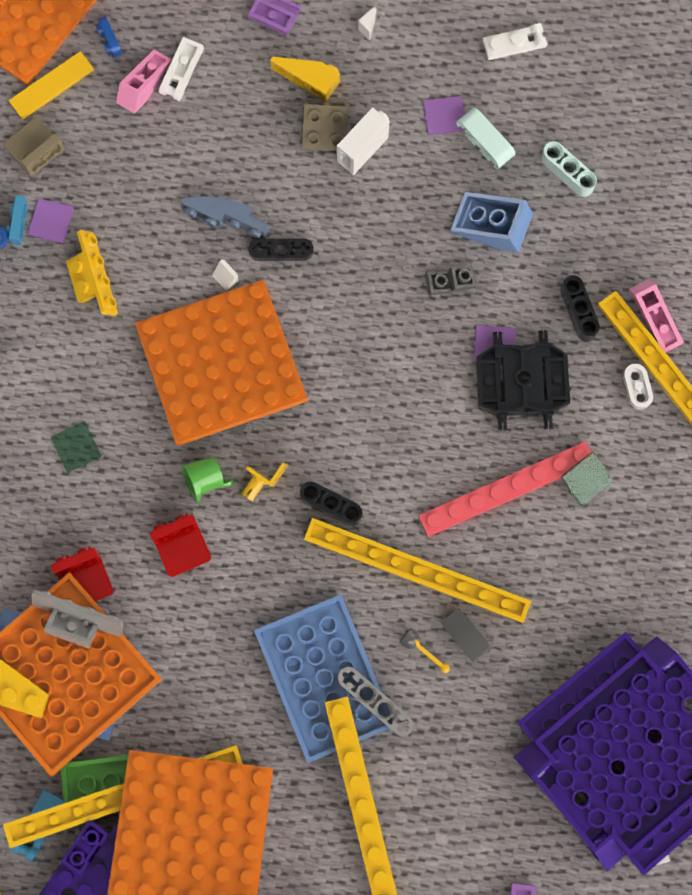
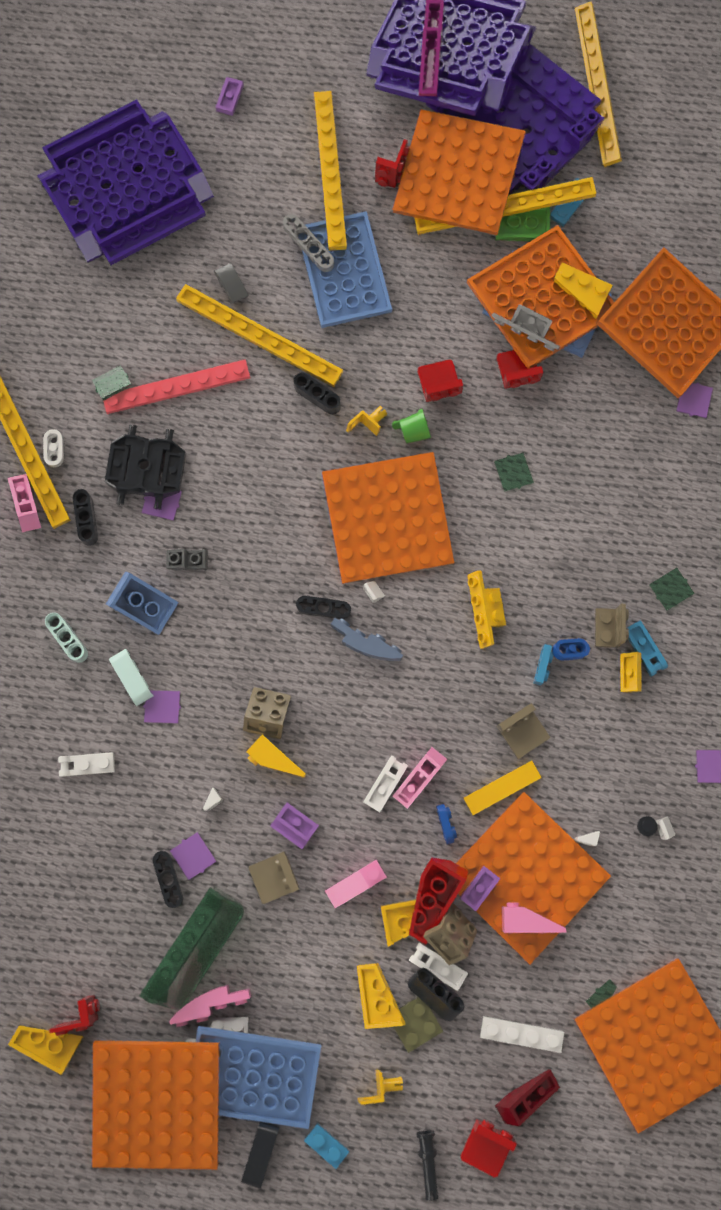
camera: 170 degrees left, 0 degrees up
(50, 221) = (515, 664): medium lavender piece -> none
(288, 817) = (390, 172): none -> red bracket
(363, 140) = (236, 685): white brick -> none
(411, 640) = (272, 285): hinge -> none

